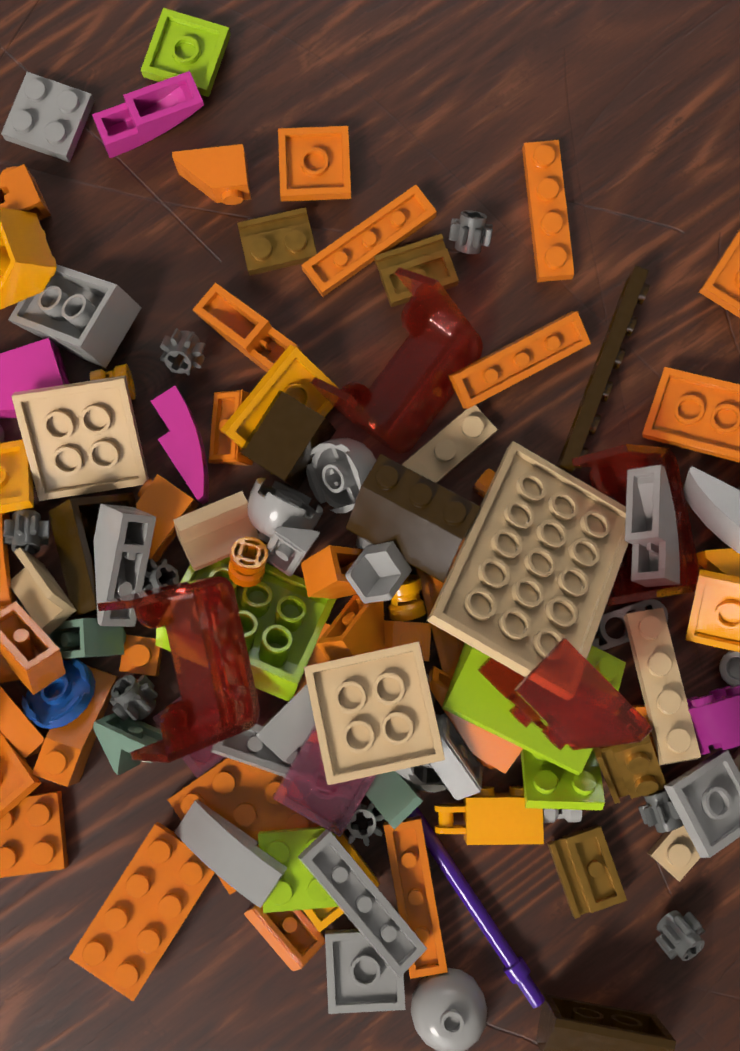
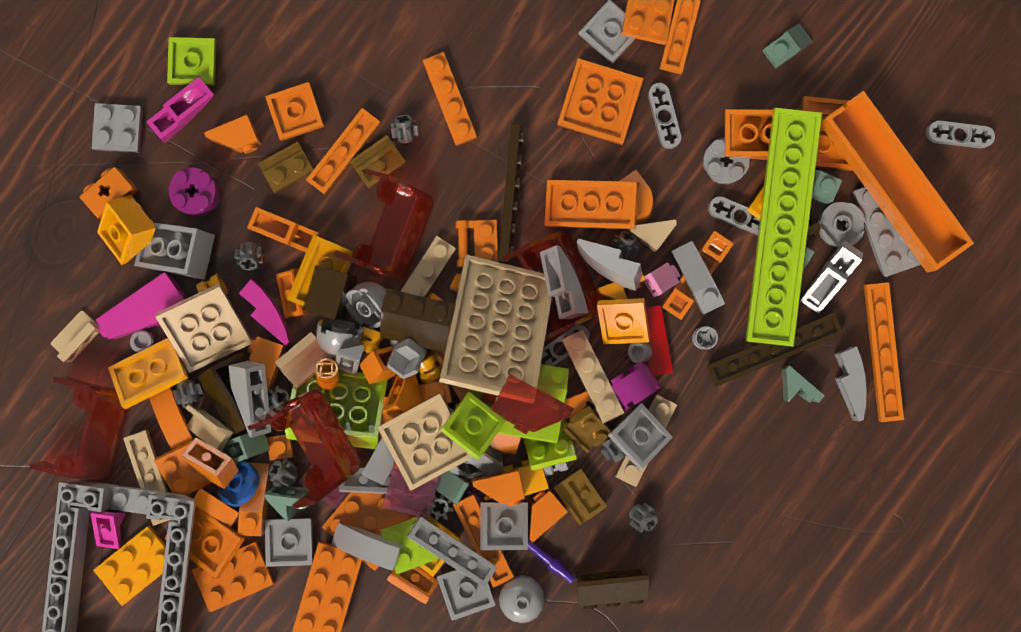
camera: 20 degrees left, 5 degrees up
(109, 808) = (289, 542): none -> light grey plate
(131, 235) = (187, 181): none -> magenta brick
(336, 524) = (371, 340): none -> light orange wheel
(456, 885) = (503, 526): none -> light grey plate
(458, 709) = (473, 425): none -> lime plate
(474, 821) = (502, 487): none -> orange slope
(519, 359) = (457, 201): orange plate -> none
(523, 882) = (544, 513): none -> orange slope
(544, 428) = (484, 238): none -> orange plate

